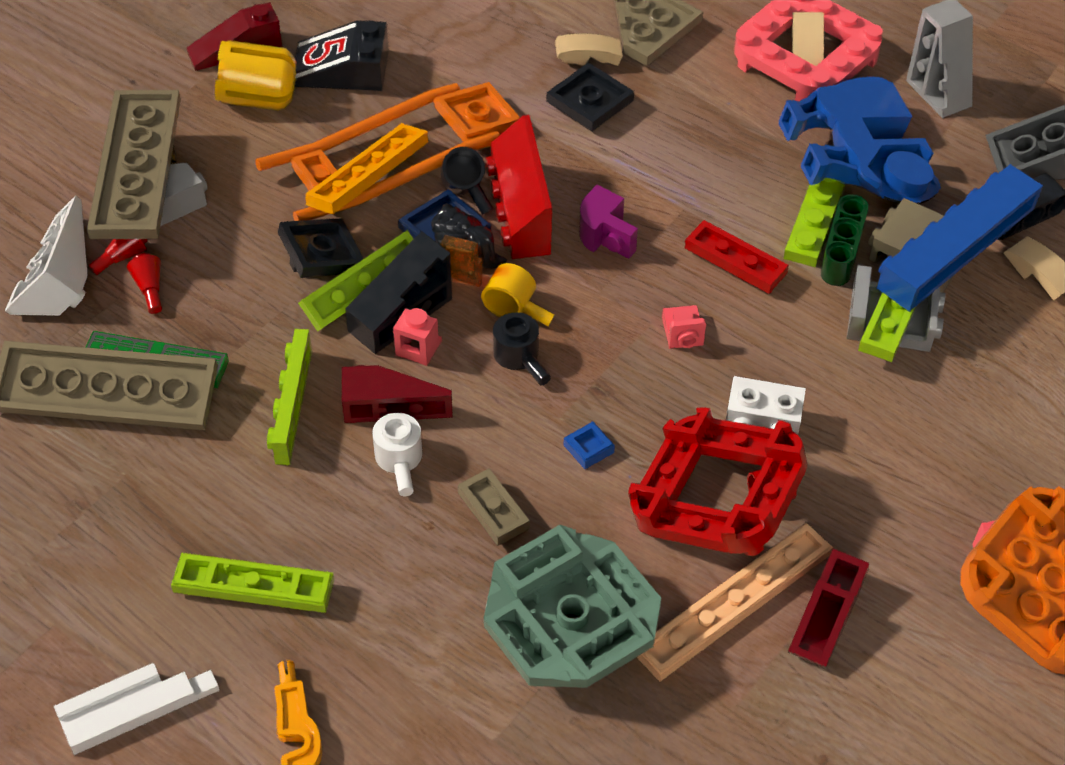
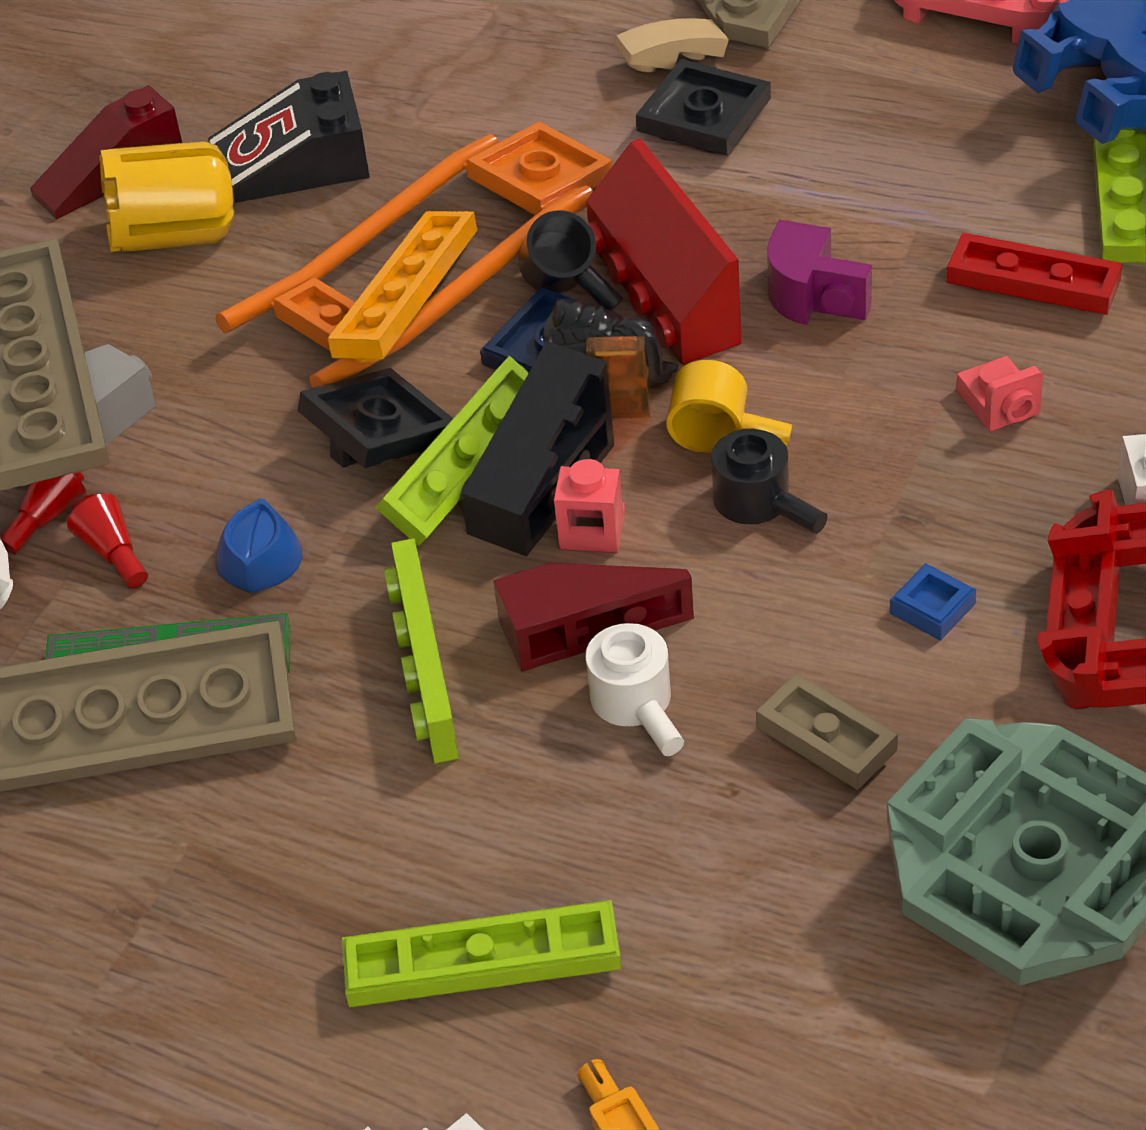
camera: 10 degrees left, 5 degrees down
(227, 309) = (257, 548): none -> blue hat

